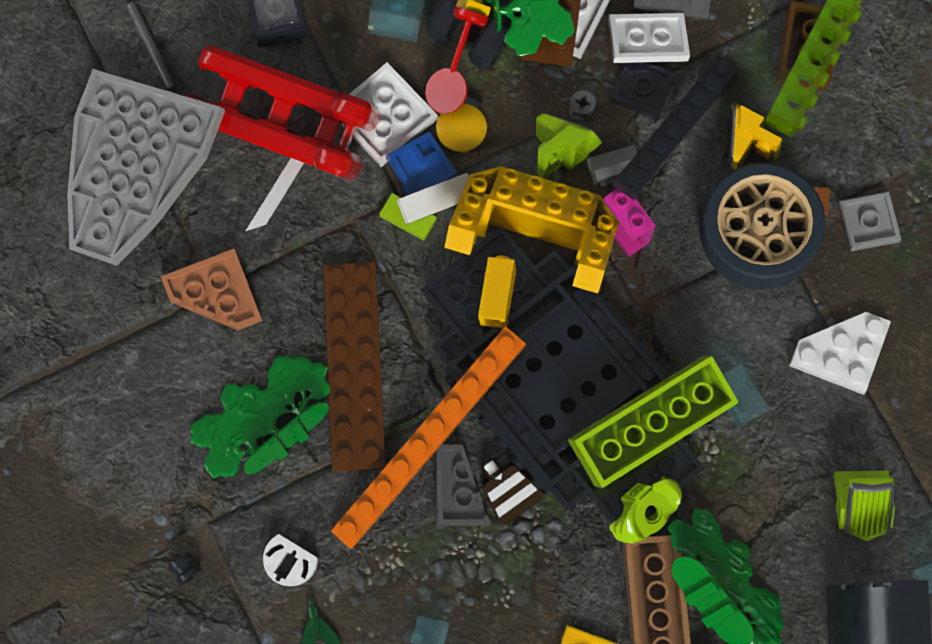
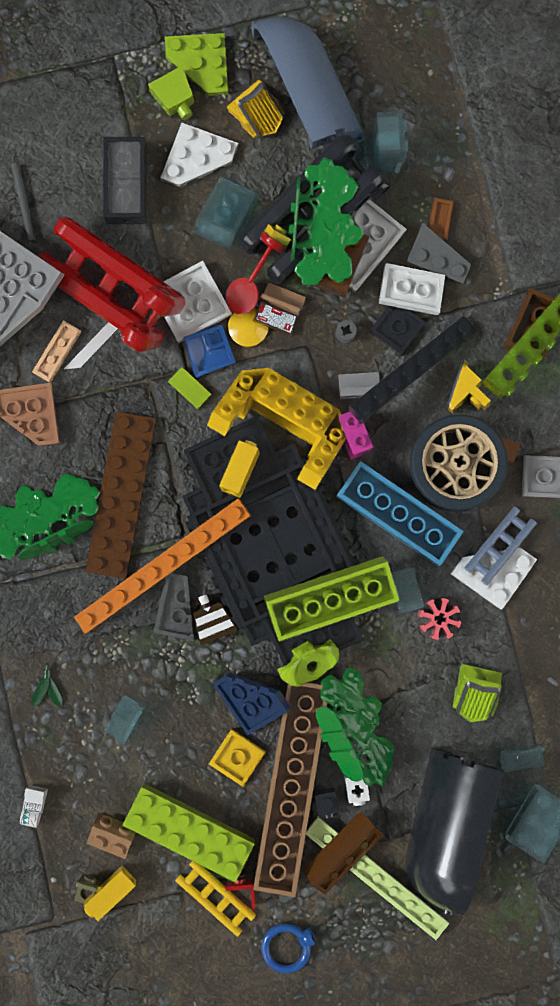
camera: 15 degrees right, 10 degrees up
(232, 211) = (56, 351): none -> light nougat tile
(273, 562) = (40, 643): white piece -> none
(432, 199) = (210, 380): white tile -> none
(492, 109) = (275, 318): none -> tile
(496, 87) = (283, 299): none -> medium nougat panel
(562, 144) = (322, 360): lime piece -> none
(584, 580) = (251, 701): none -> dark blue plate
(707, 304) = (399, 514): none -> dark azure brick
(799, 428) = (443, 625): none -> coral gear
(847, 329) = (500, 533): none -> sand blue bar

